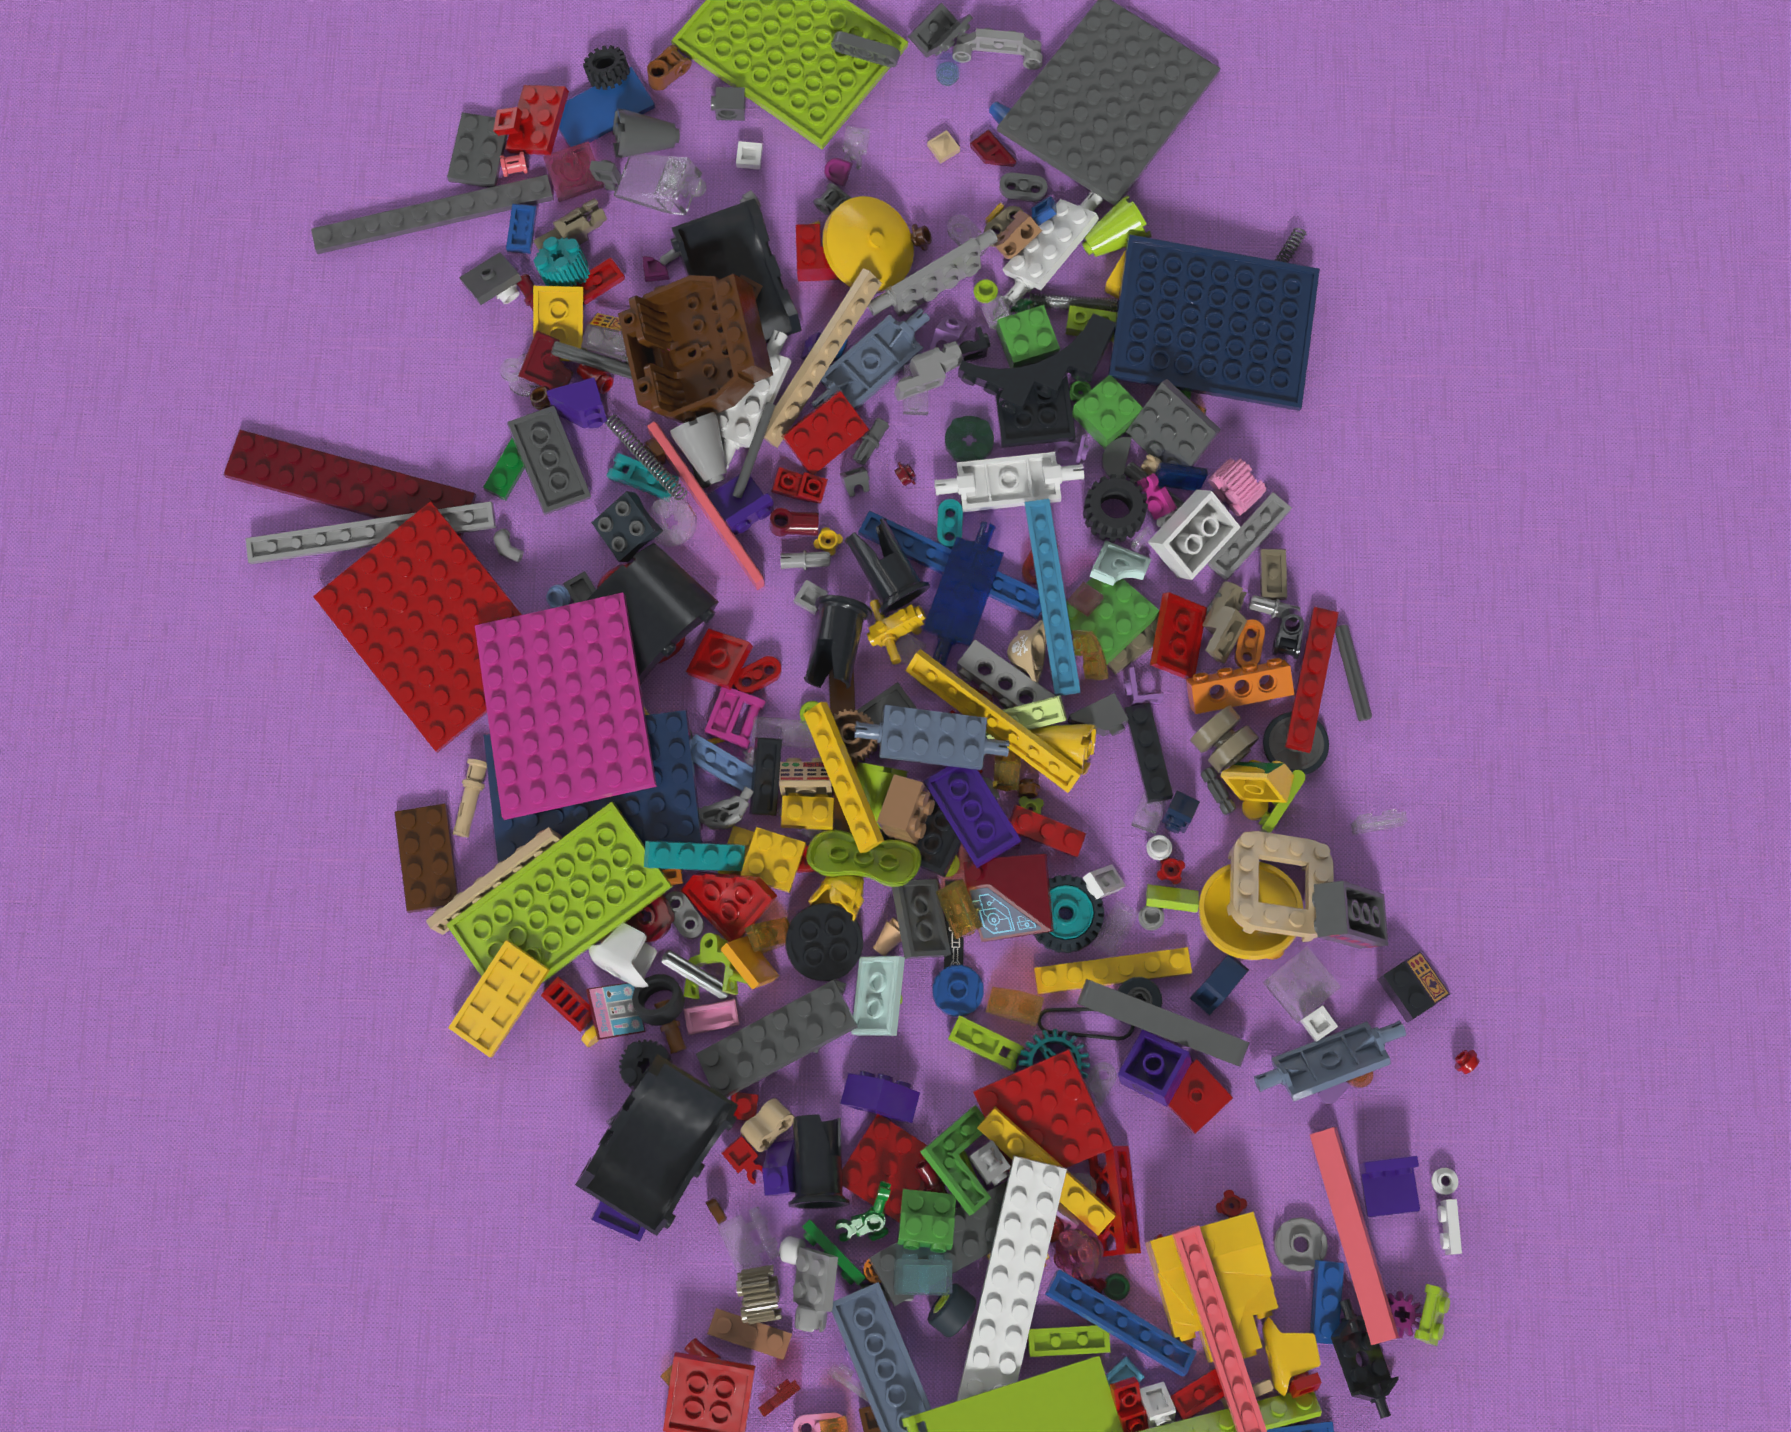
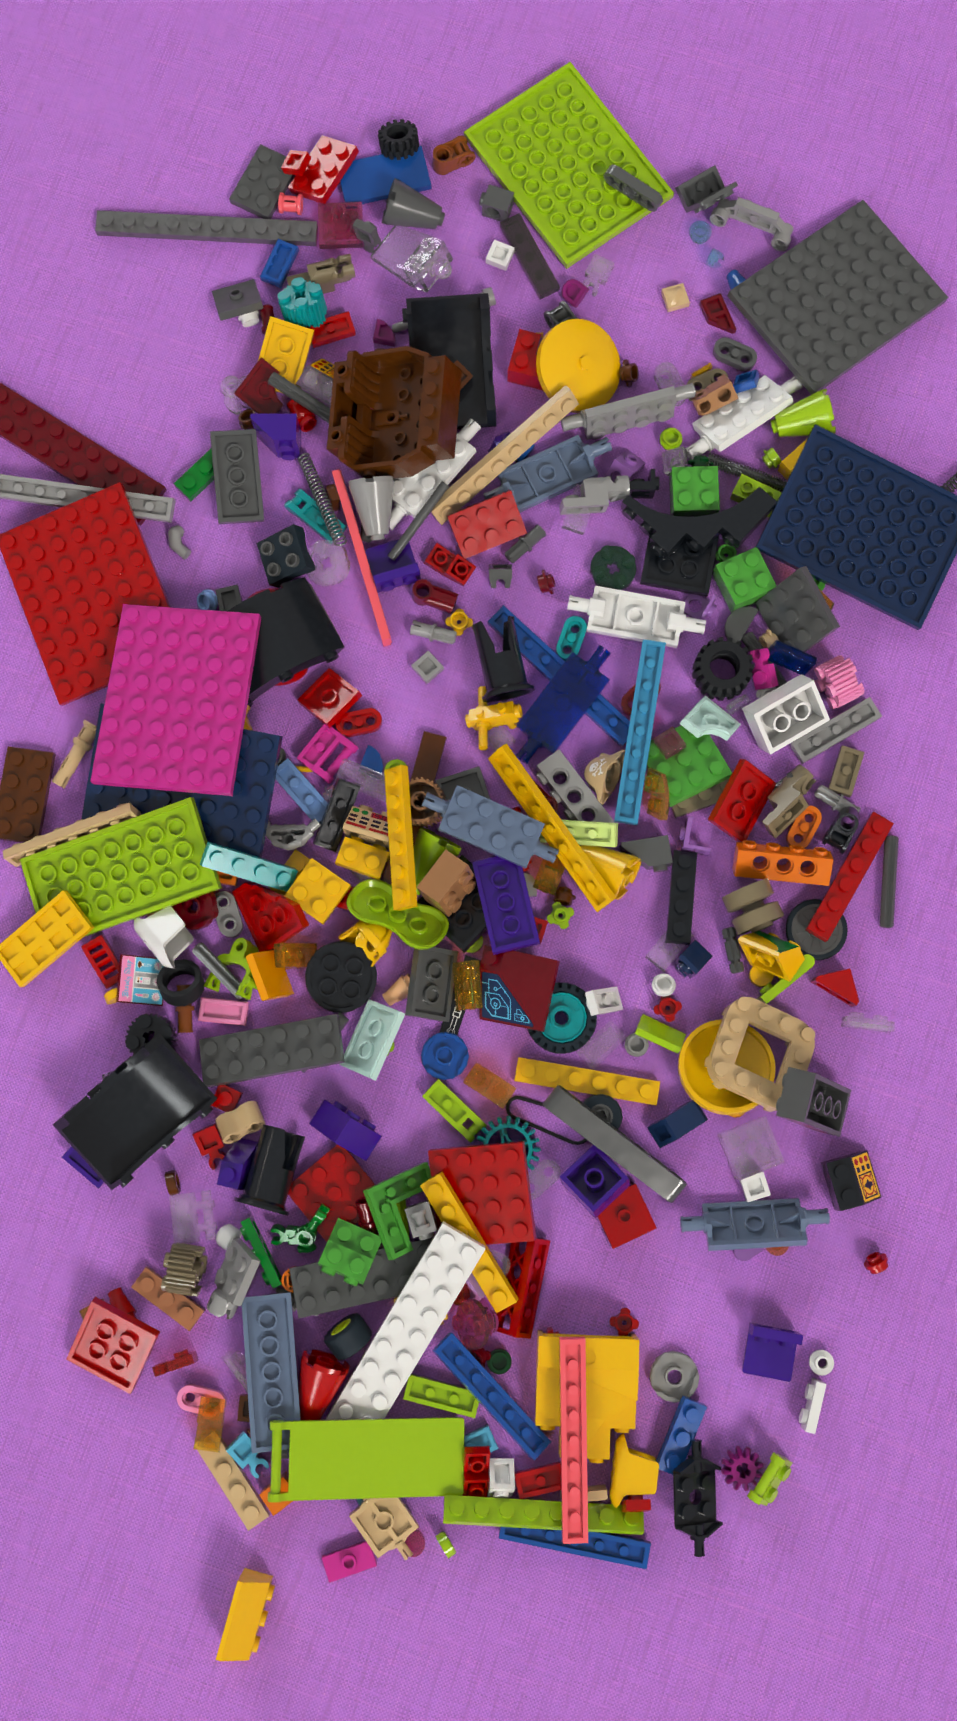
camera: 20 degrees right, 5 degrees up
(780, 147) = (529, 256): none -> clear smoke tile
(784, 709) = (372, 759): none -> blue tile
(836, 639) = (435, 712): black piece -> none
(923, 1276) = (329, 1302): clear light blue brick -> none
(938, 1367) = (319, 1382): none -> red cone
(970, 95) = (714, 256): none -> clear light blue hinge
(1047, 831) = (567, 939): red plate -> none
(1094, 281) = (771, 458): none -> lime plate
(1337, 792) = (840, 985): none -> red slope
(1354, 1236) = (723, 1387): coral tile -> none

